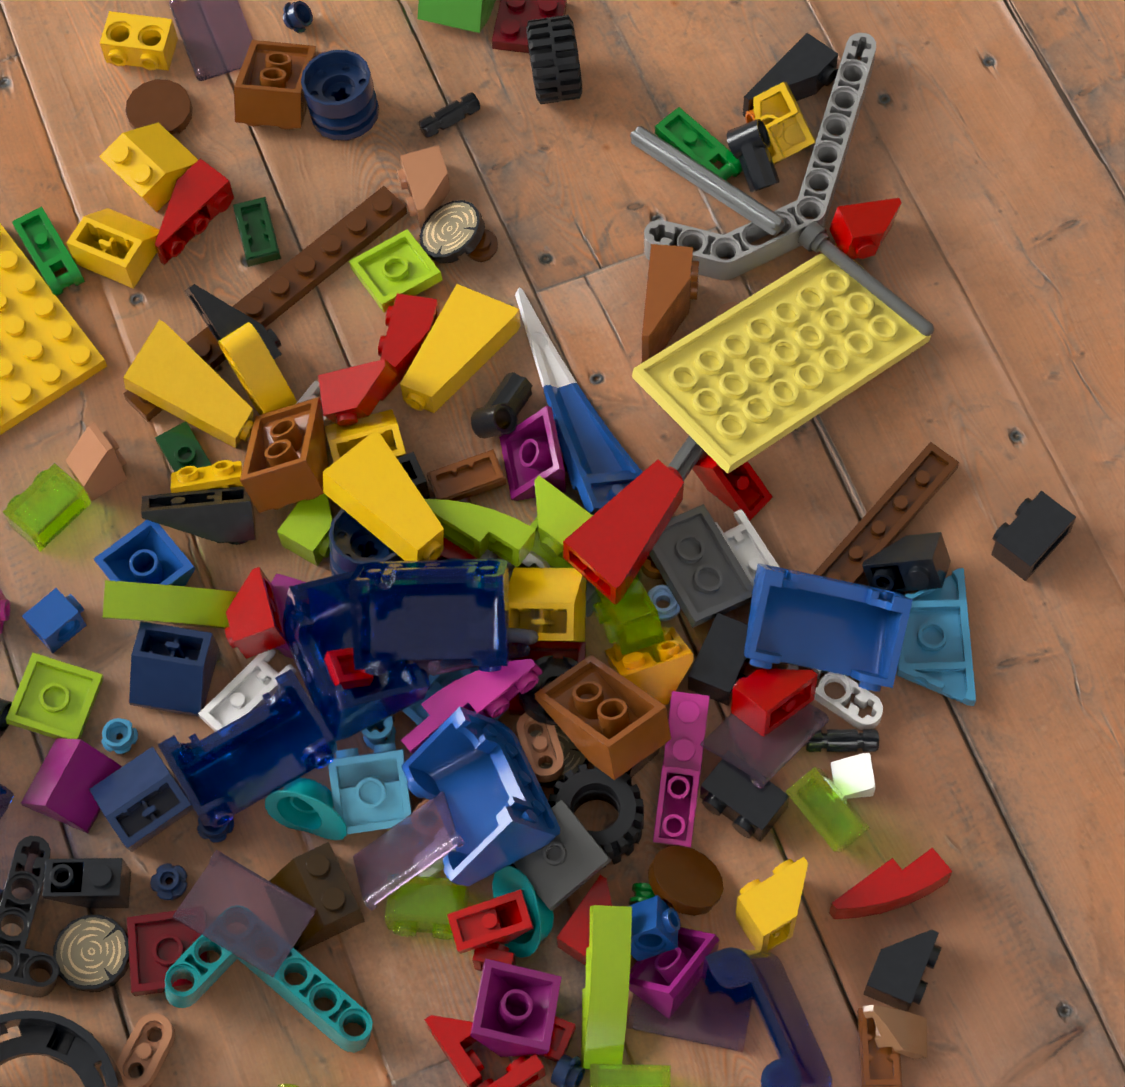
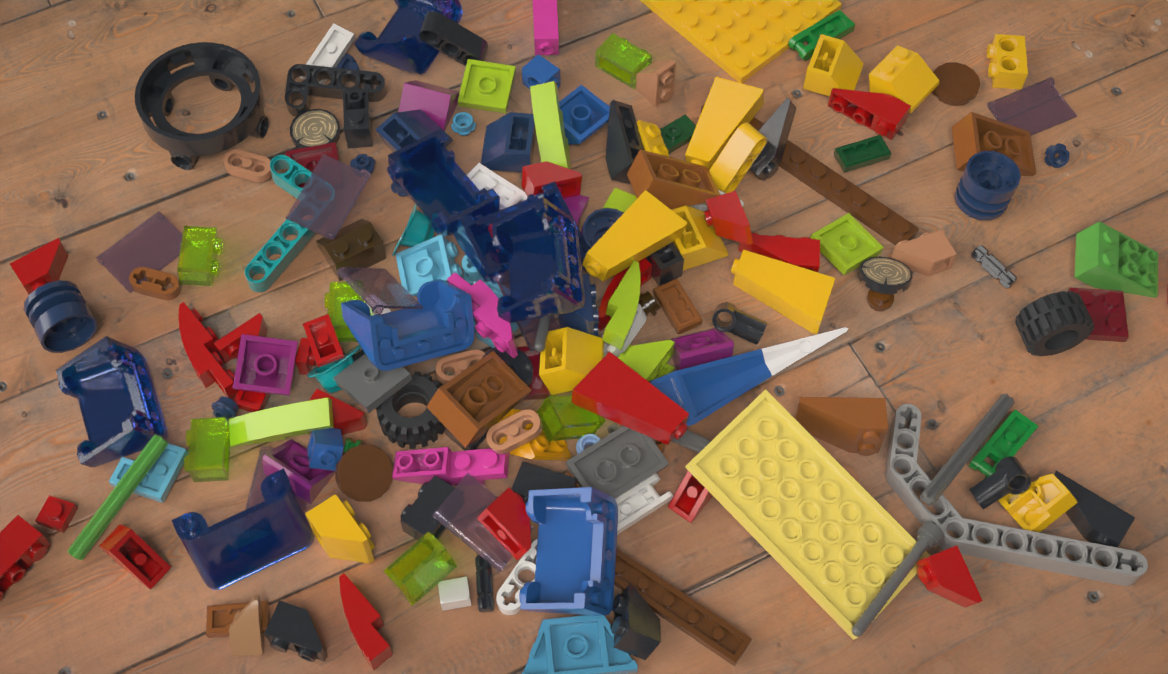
camera: 80 degrees right, 5 degrees down
(661, 671) = (514, 430): none -> nougat plate

